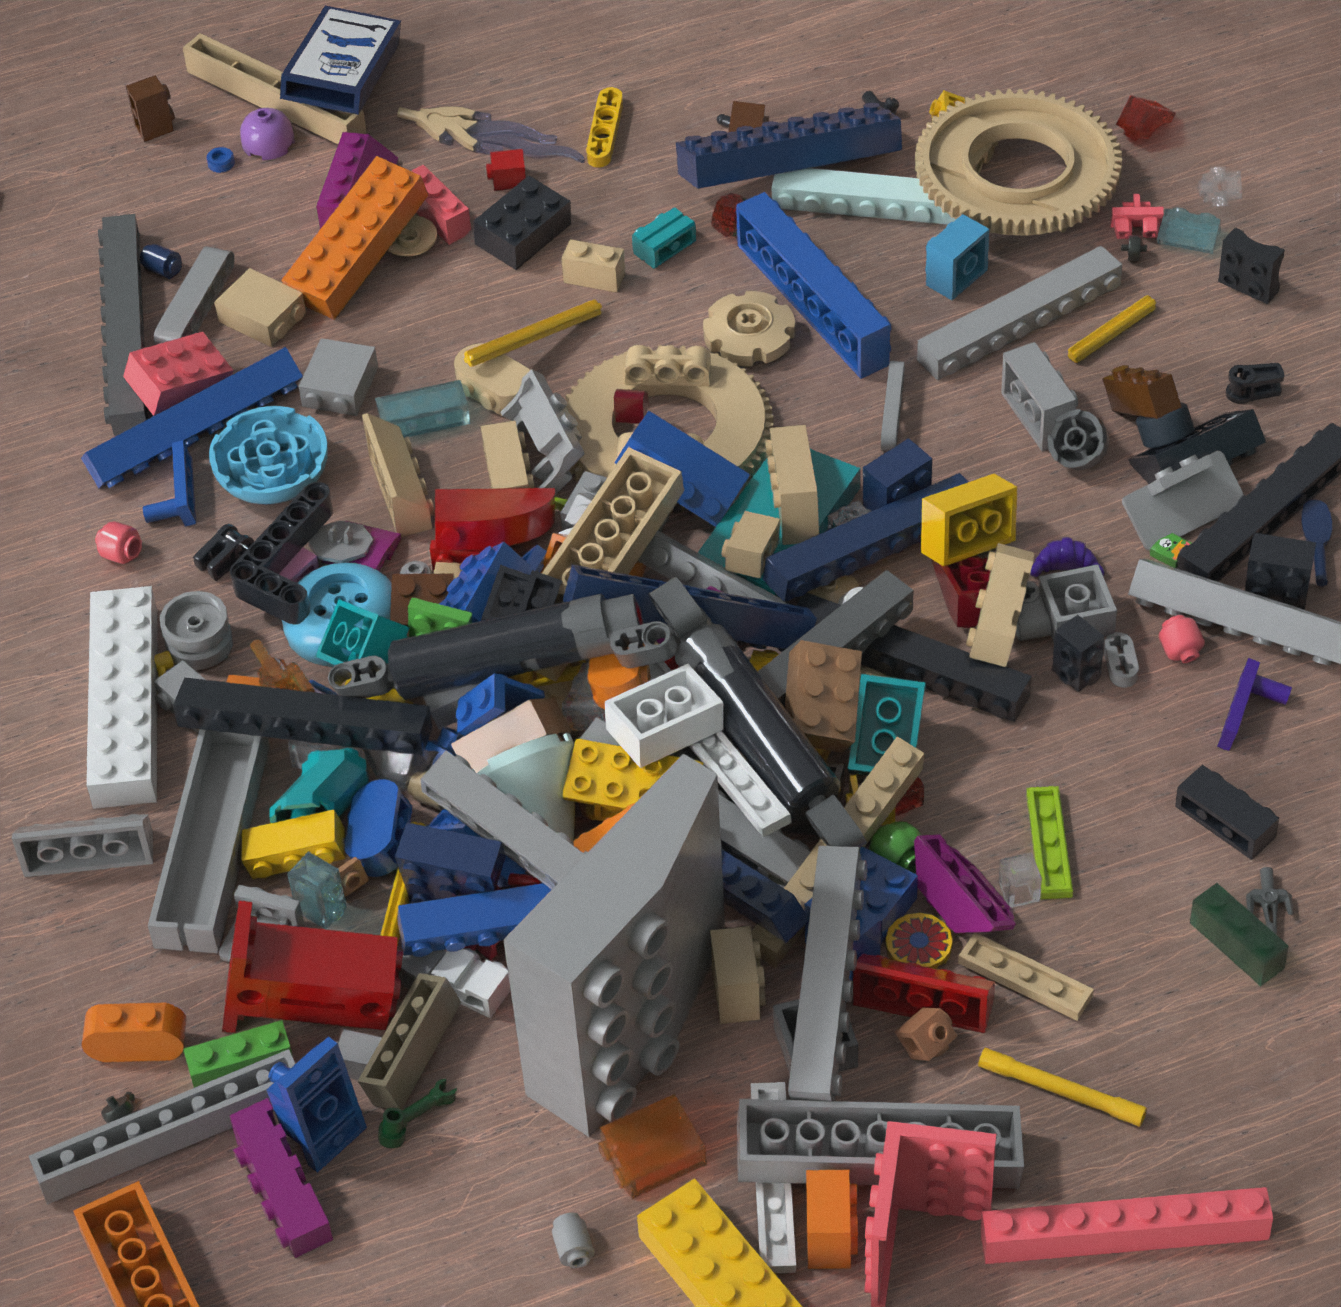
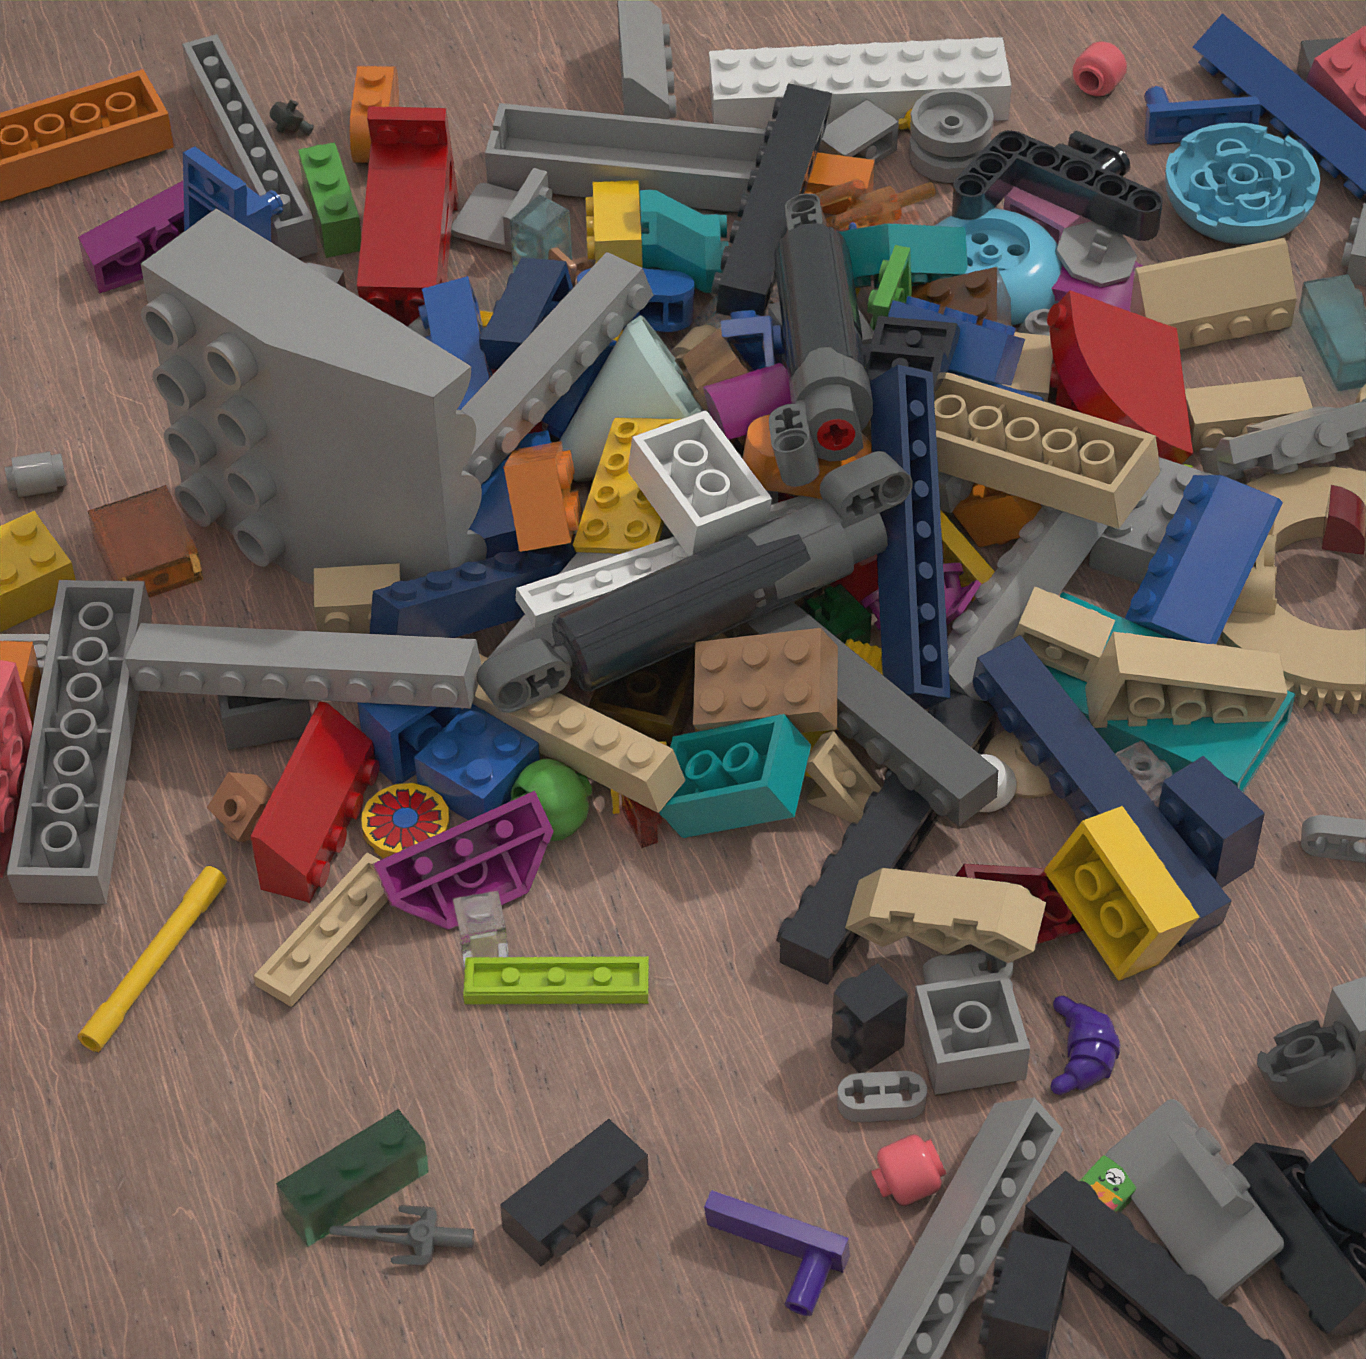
camera: 90 degrees right, 0 degrees up
(561, 699) = (746, 397): none -> magenta brick

